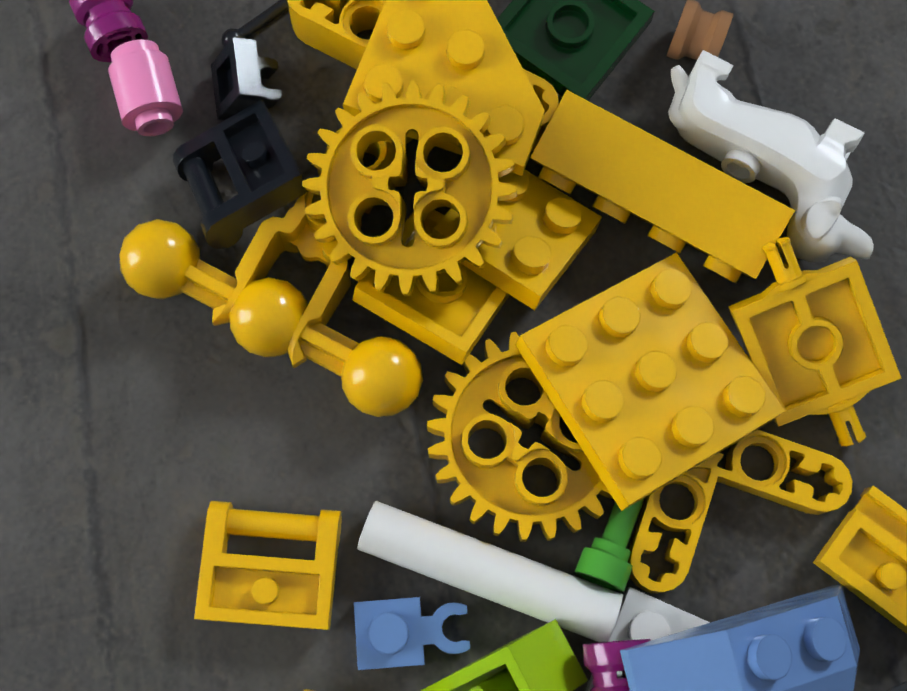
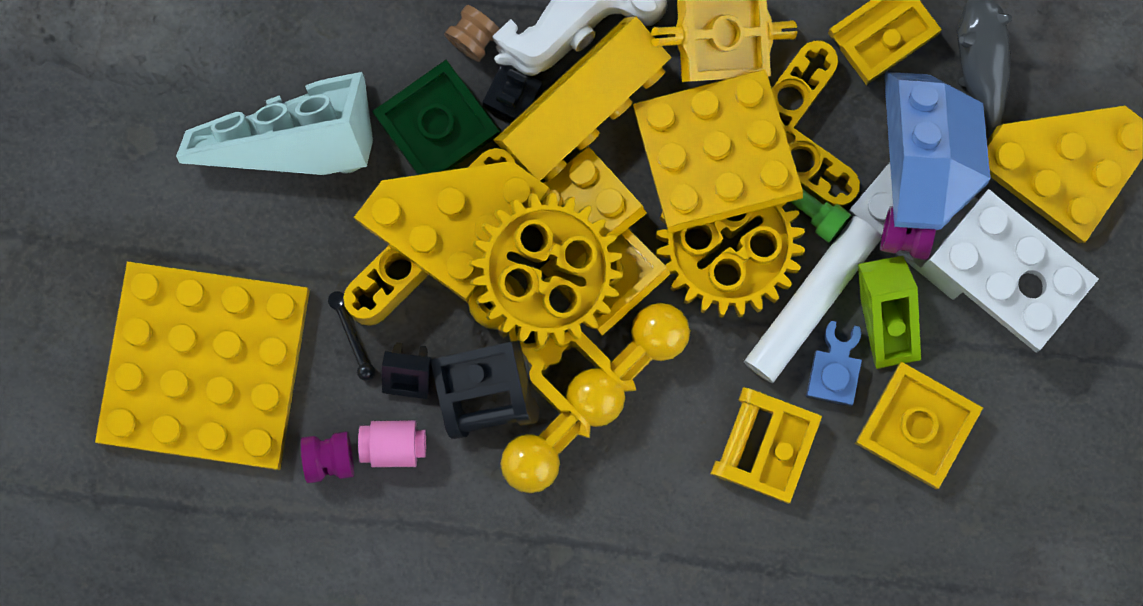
camera: 70 degrees left, 5 degrees up
(642, 103) = (511, 92): none -> black tile

